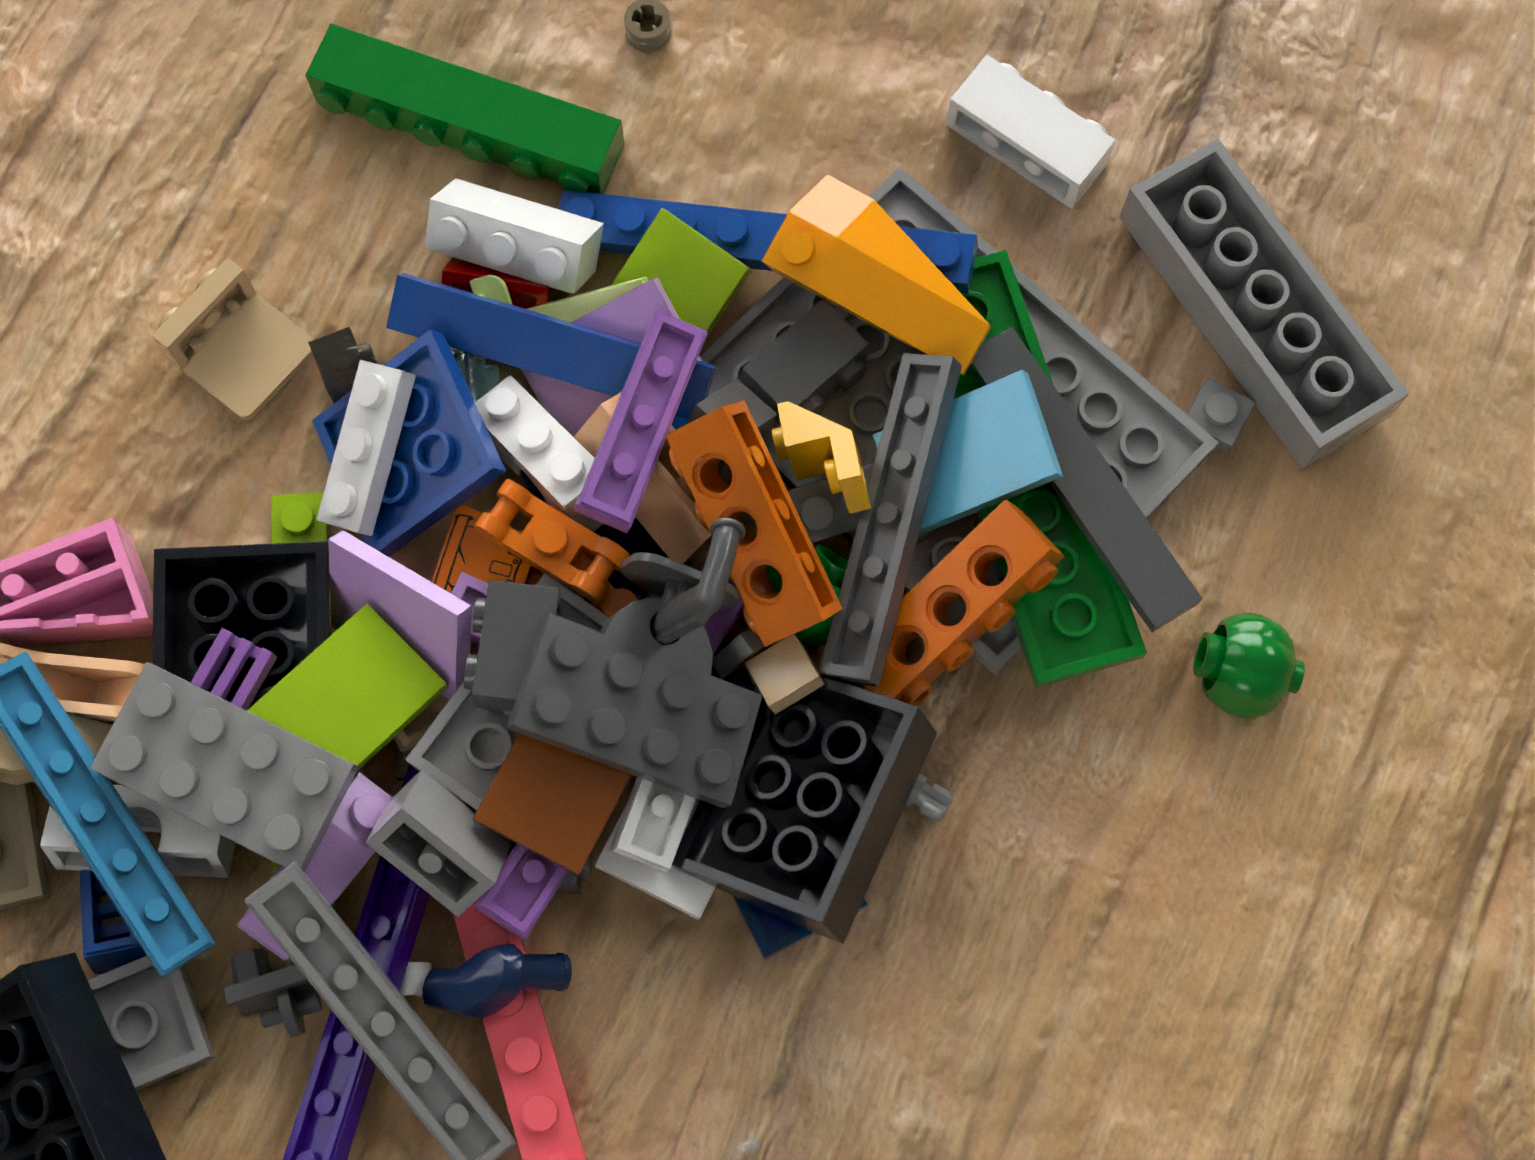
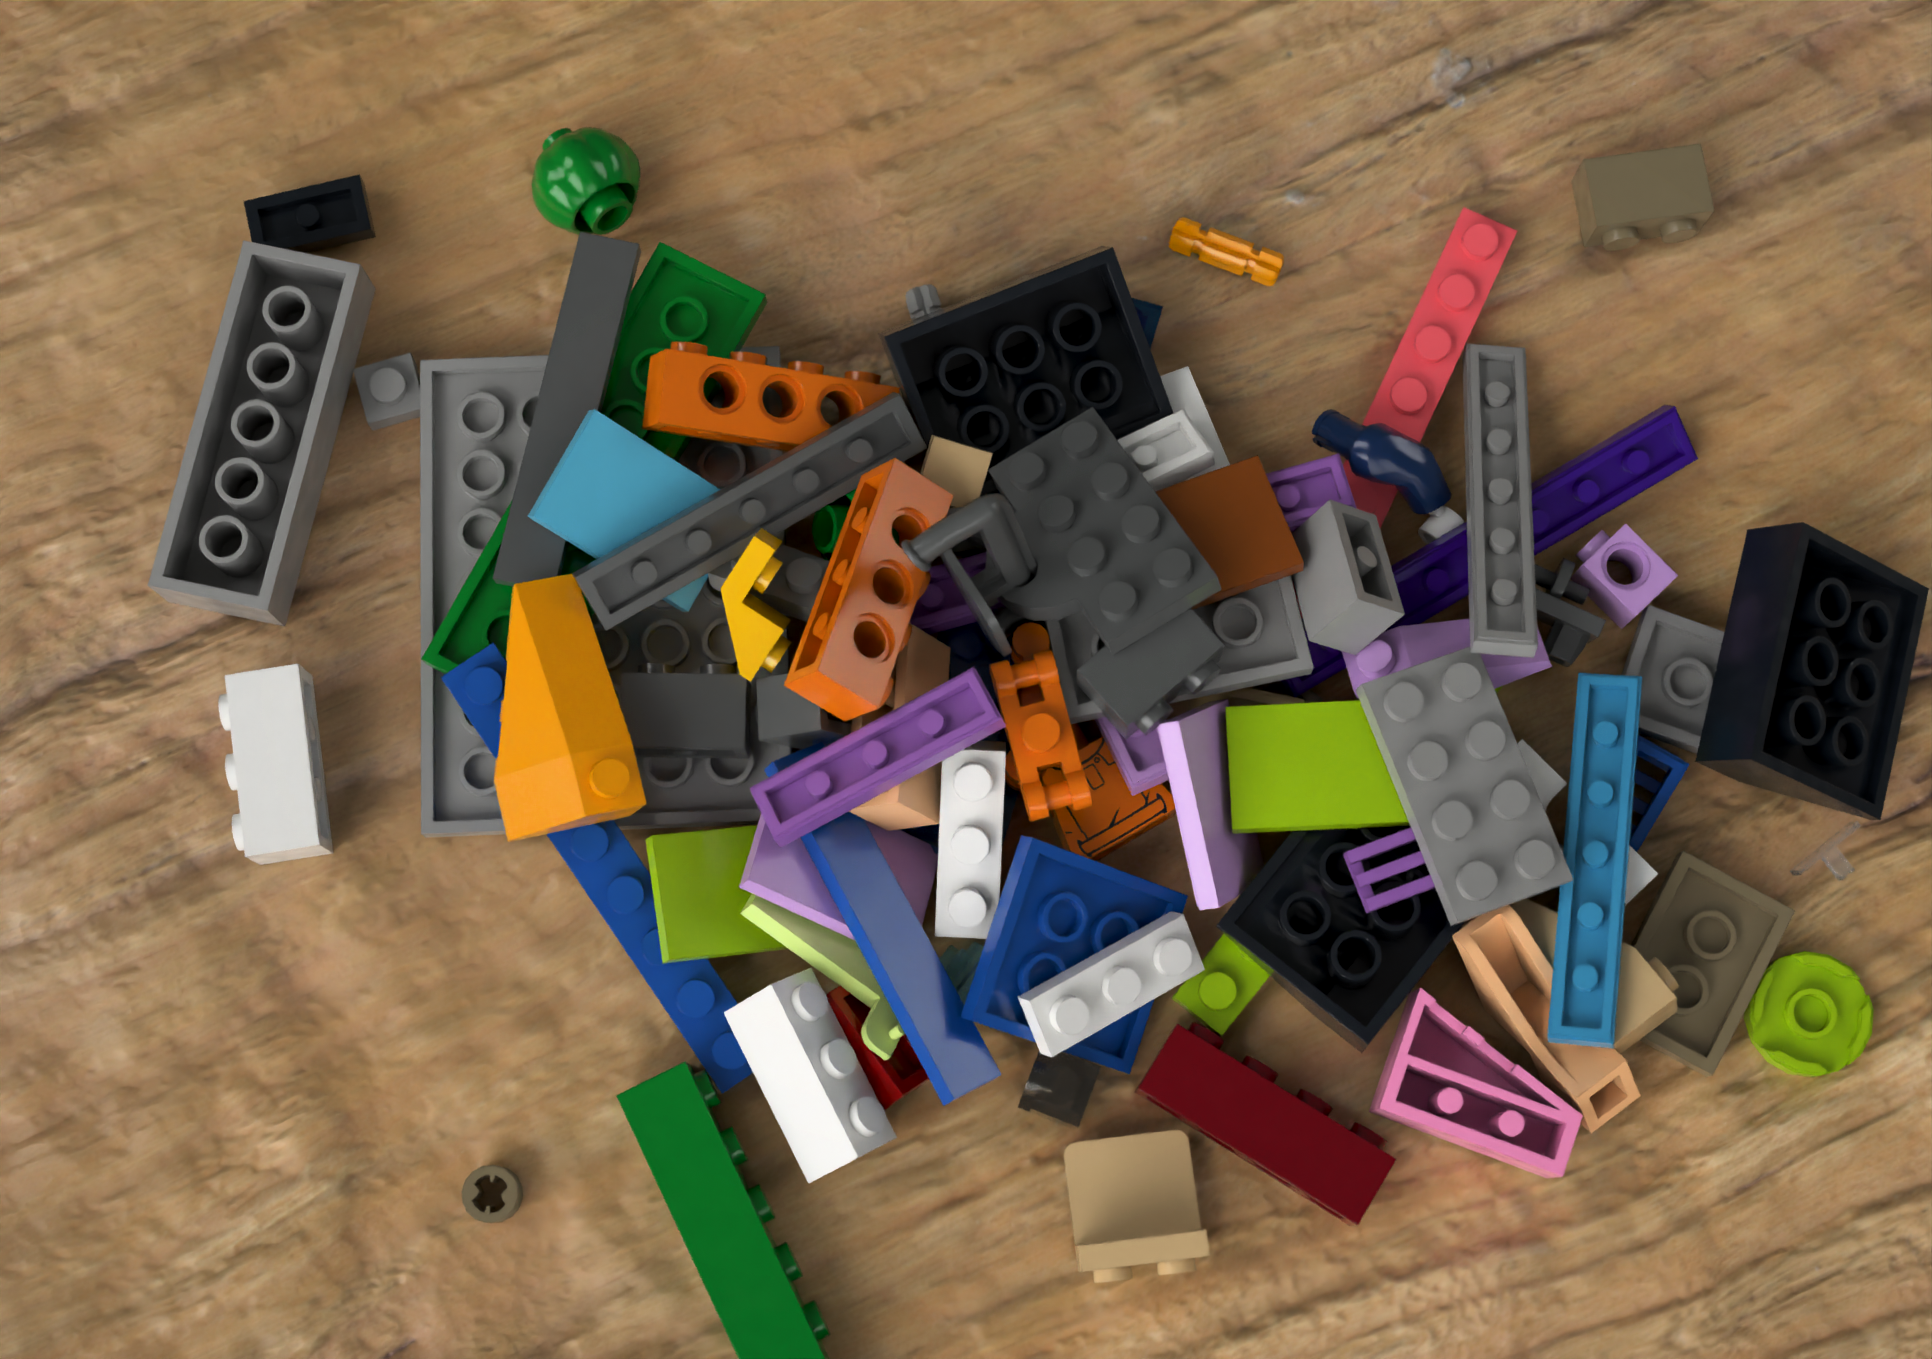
camera: 135 degrees left, 5 degrees up
(192, 463) = (1266, 1124): none -> dark red brick
(223, 1062) = (1647, 569): none -> lavender brick
(758, 1046) = (1226, 251): none -> light orange axle
(1393, 470) = (312, 216): none -> black plate

